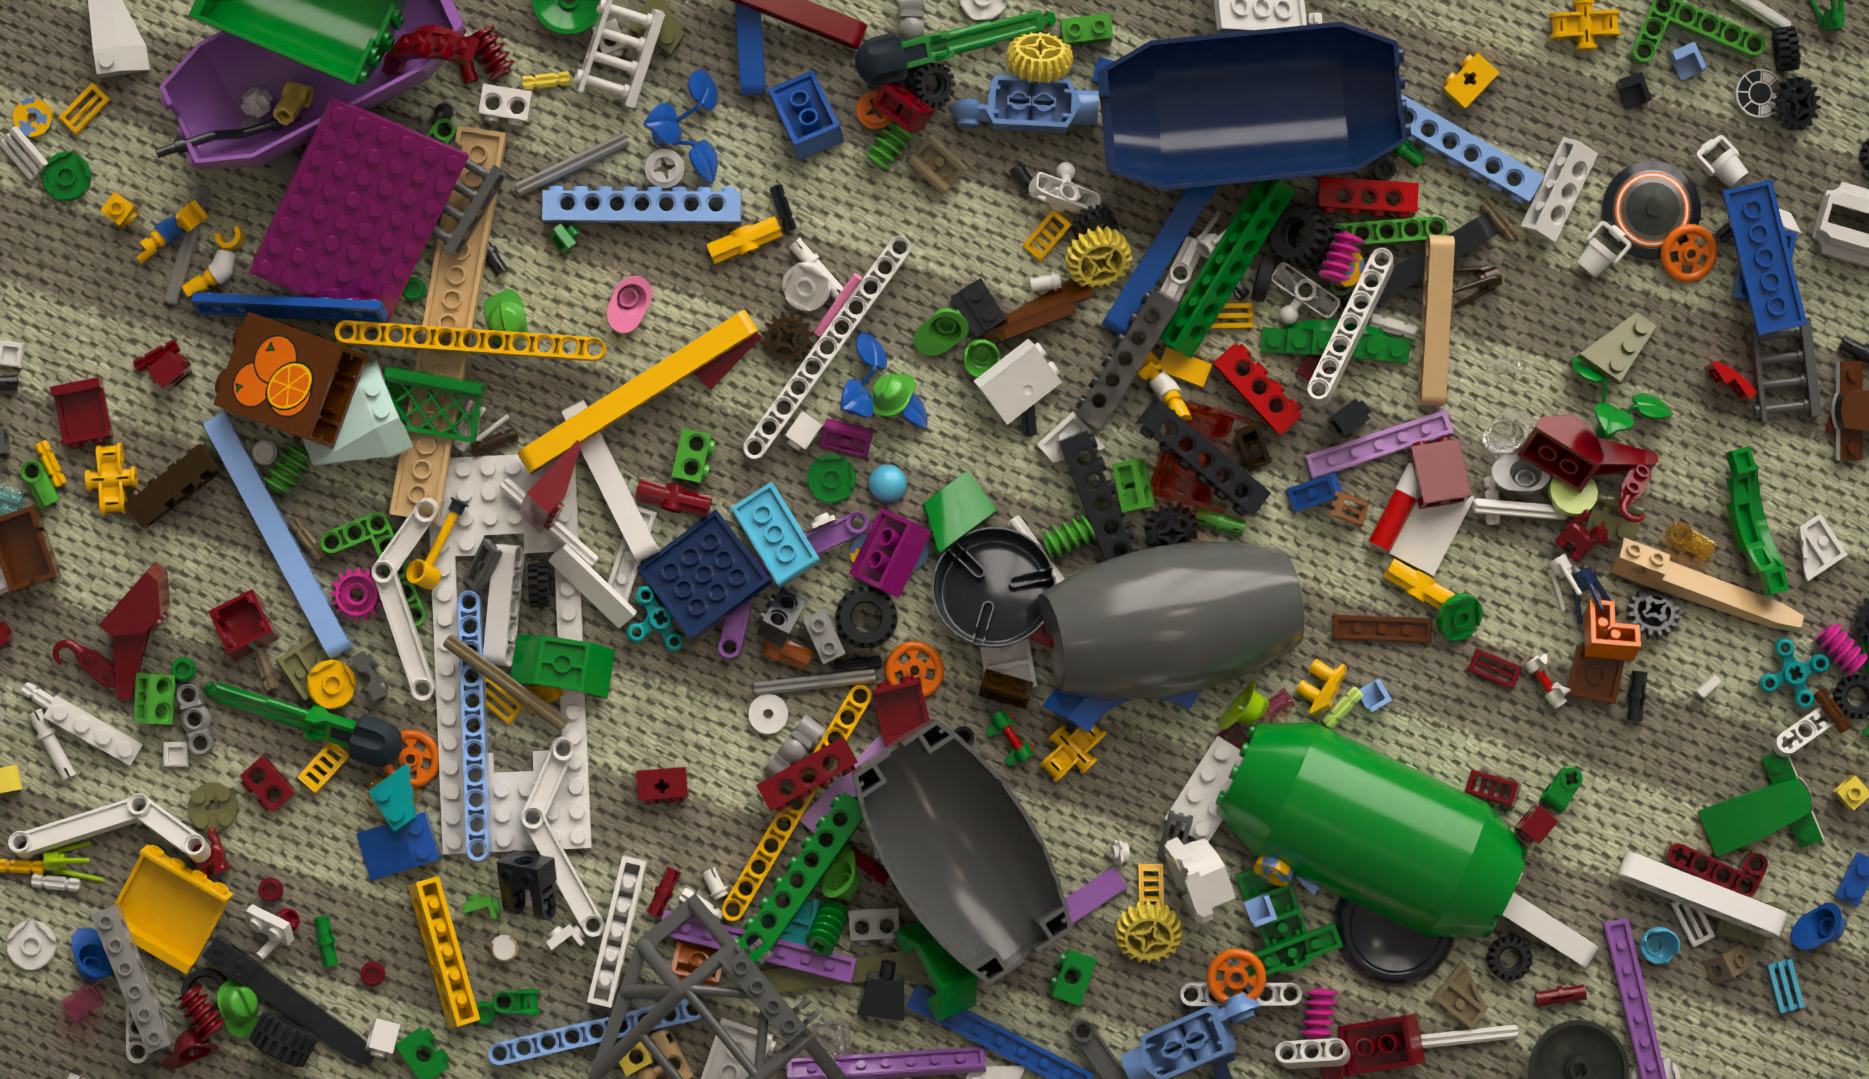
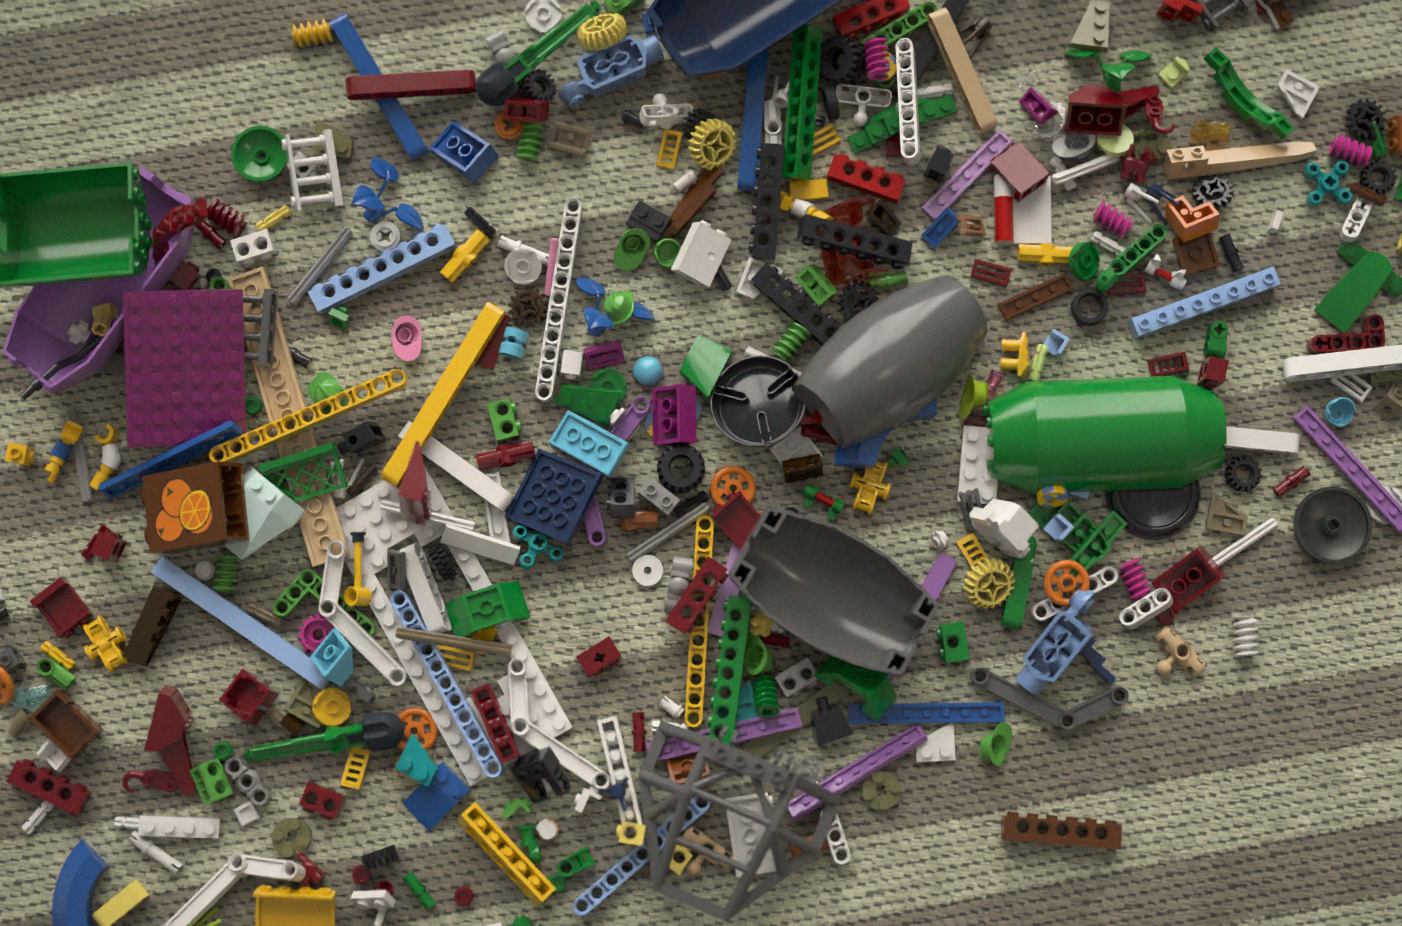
camera: 30 degrees left, 5 degrees down
(277, 680) = (292, 724): none -> dark brown tile
(300, 882) = (380, 857): none -> black tyre
(362, 632) = (334, 658): none -> medium azure slope
(411, 102) = (185, 276): none -> dark red brick
(477, 949) = (528, 839): none -> green connector
(506, 800) = (495, 723): none -> dark red brick
(525, 393) = (361, 438): none -> black torso
(604, 948) = (617, 791): none -> dark blue plant
(606, 1006) = (640, 831): none -> light yellow brick
(742, 378) = (511, 349): none -> medium azure wheel
(804, 489) = (590, 402): none -> green wing
(862, 844) = (760, 624): none -> light yellow tile
(1040, 656) = (818, 434): none -> dark red pin
(1124, 733) = (900, 457): none -> green tile
(1193, 939) = (1016, 602): none -> green piece
(1328, 559) = (989, 280): none -> dark red tile
(1455, 677) = (1093, 293): none -> black tyre
(1477, 653) = (1109, 277): none -> green piece
(1500, 611) = (1107, 243): none -> white axle
(1505, 406) = (1038, 105): none -> magenta slope
(1518, 586) = (1113, 220): none -> dark pink piece
(1571, 738) = (1203, 303): none -> light blue brick
(1687, 448) = (1174, 72): none -> yellowish green bracket

